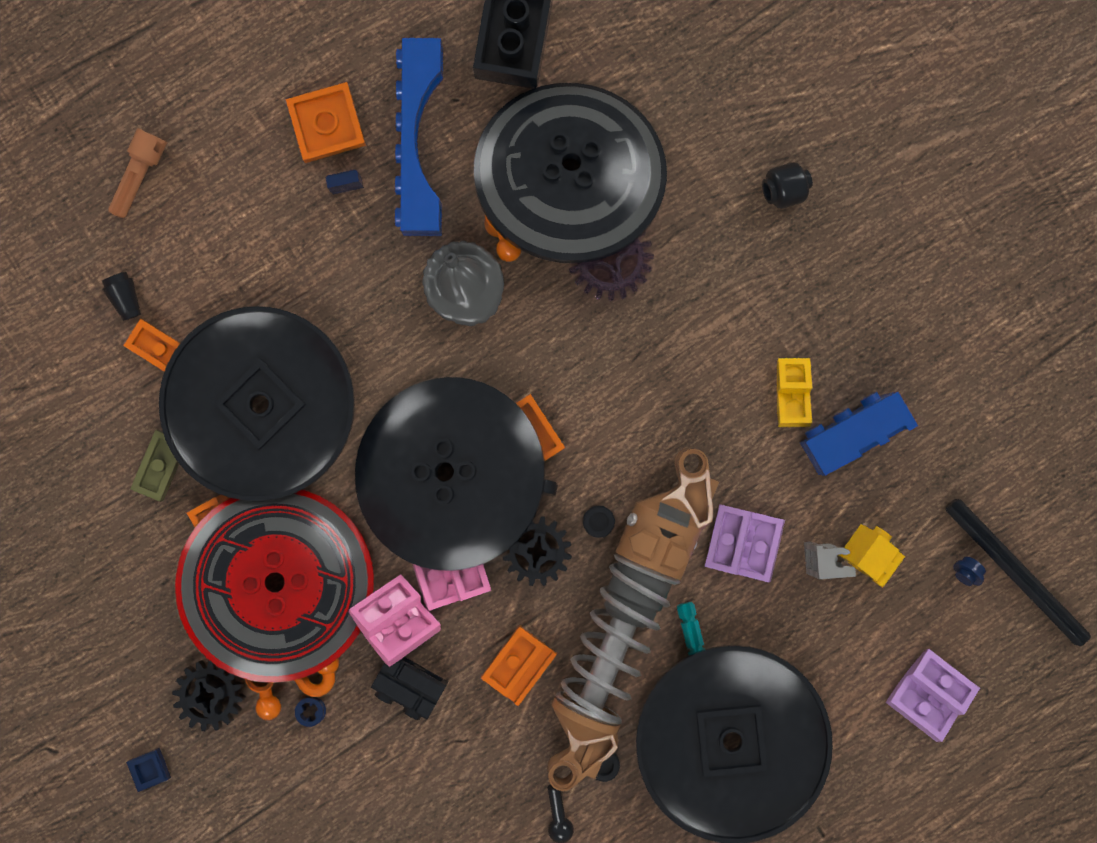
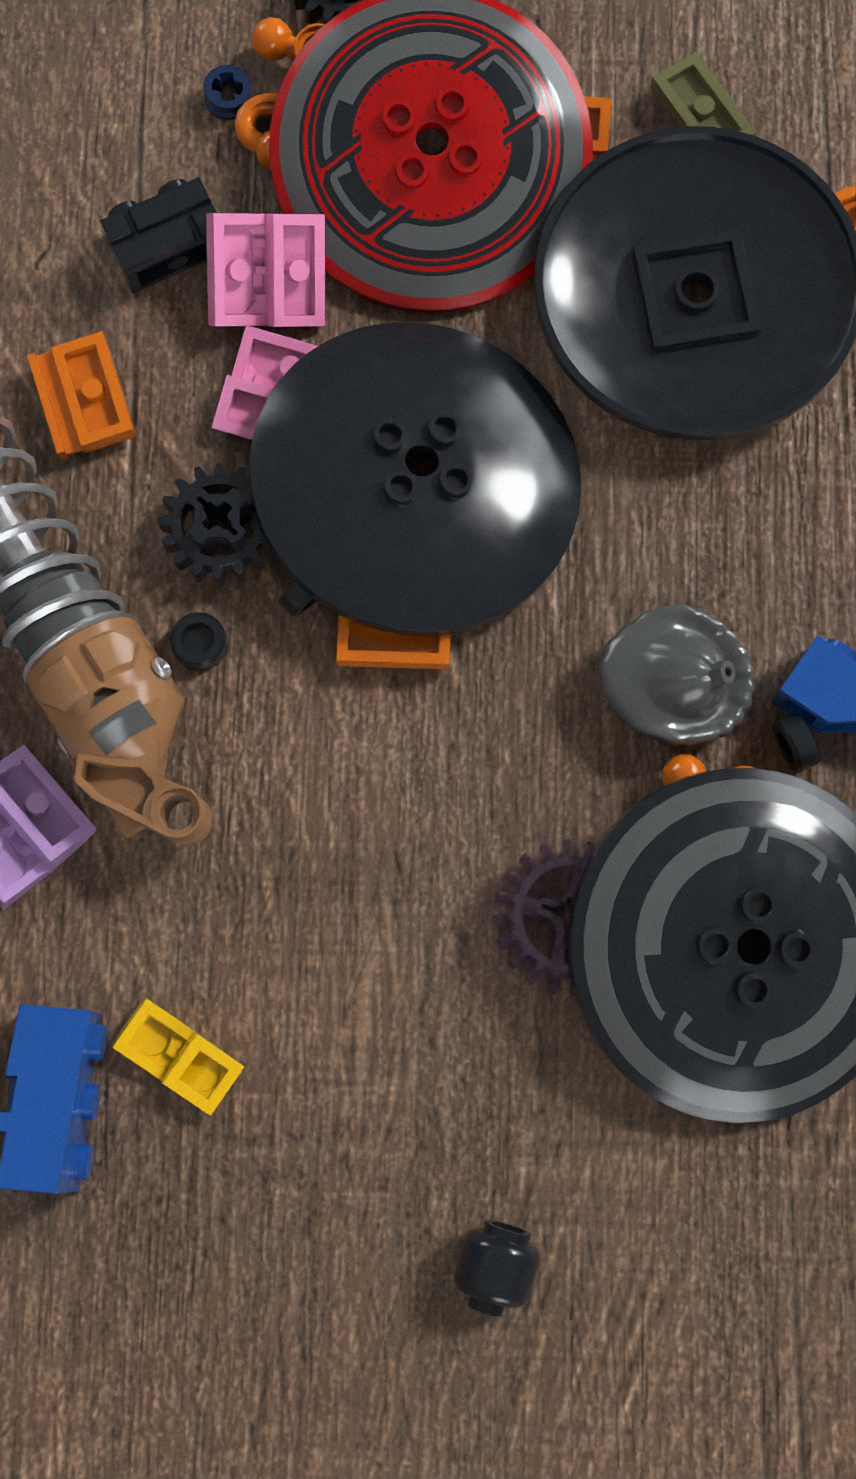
camera: 125 degrees right, 10 degrees down
(456, 209) = (796, 742): none -> black tile

